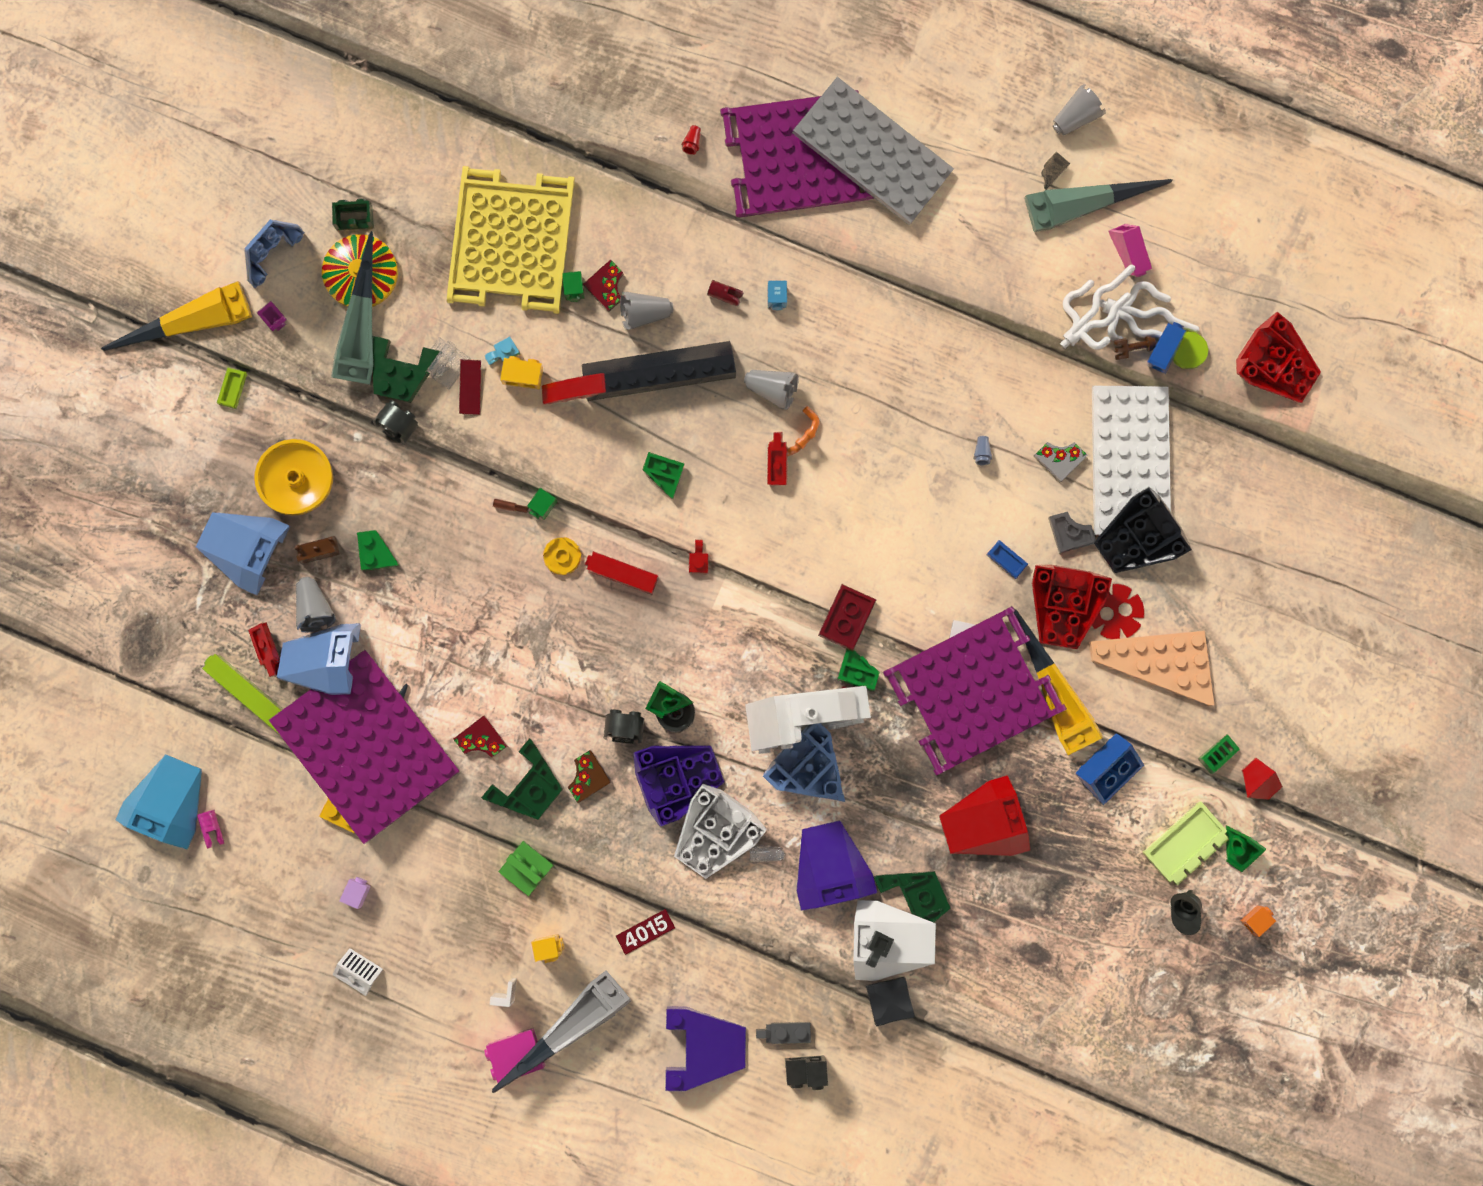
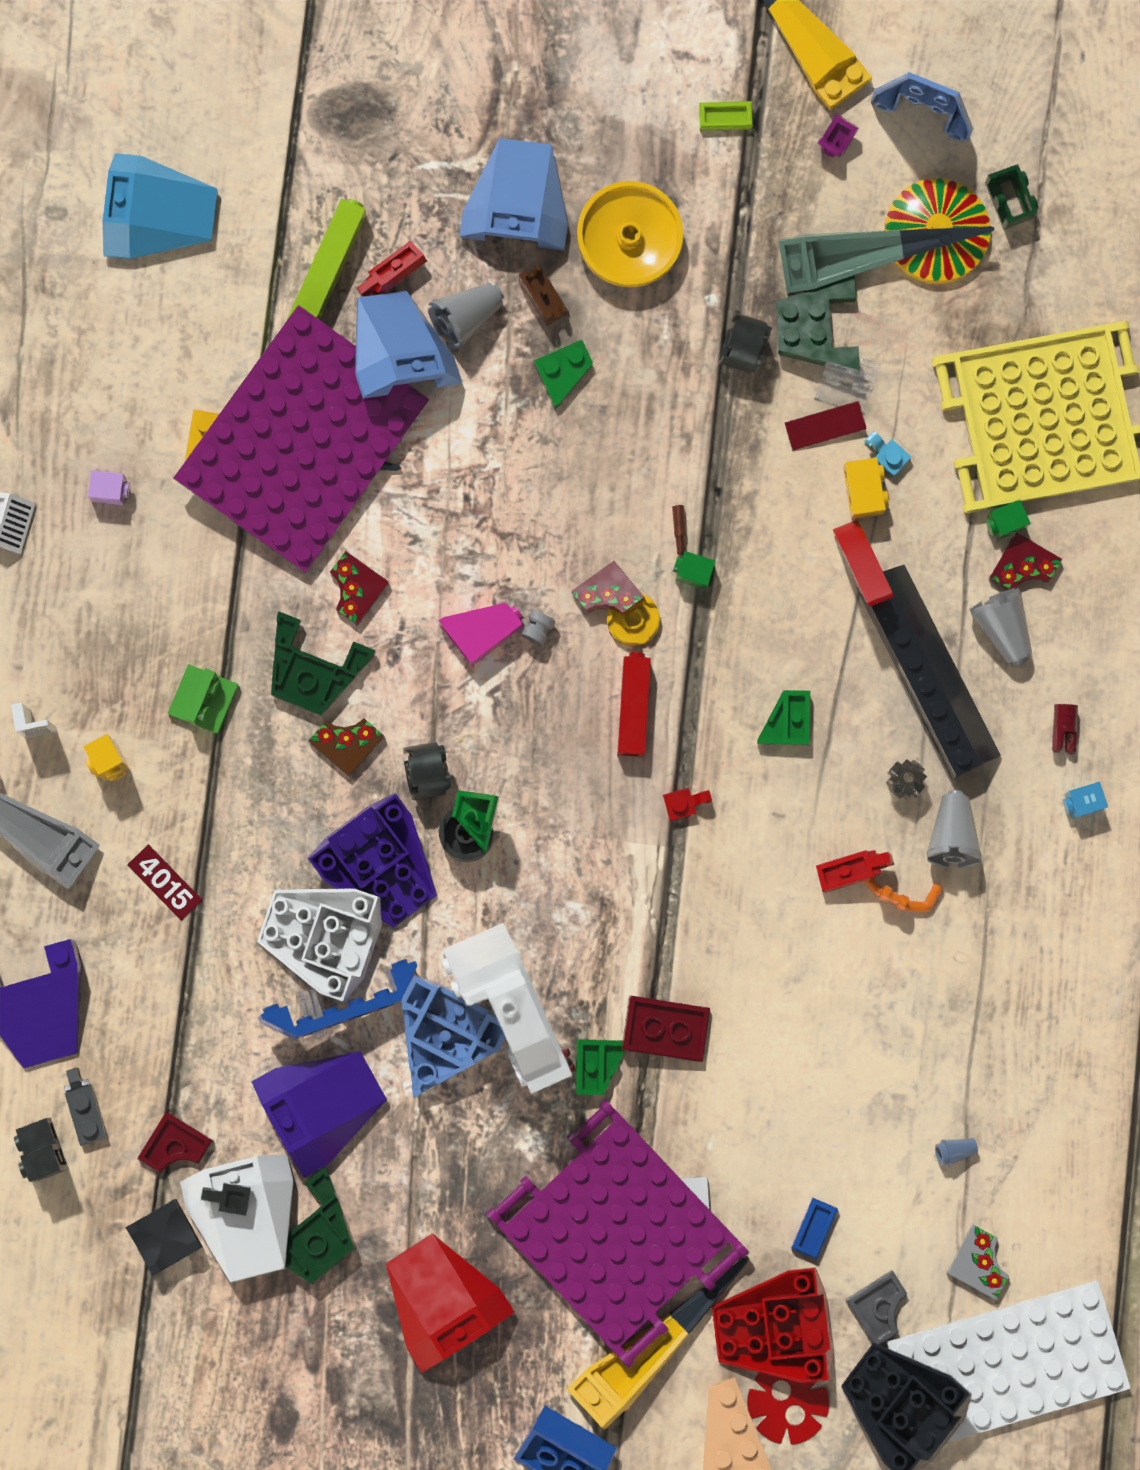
camera: 75 degrees right, 0 degrees up
(208, 823) = (144, 272): dark pink hinge -> none
(537, 566) = (610, 590): none -> tile
(537, 661) = (482, 630): none -> dark pink slope
(548, 622) = (538, 627): none -> light grey wheel
(727, 413) = (899, 786): none -> clear smoke brick
(762, 788) = (281, 1021): none -> blue slope
(826, 976) = (173, 1142): none -> dark red tile

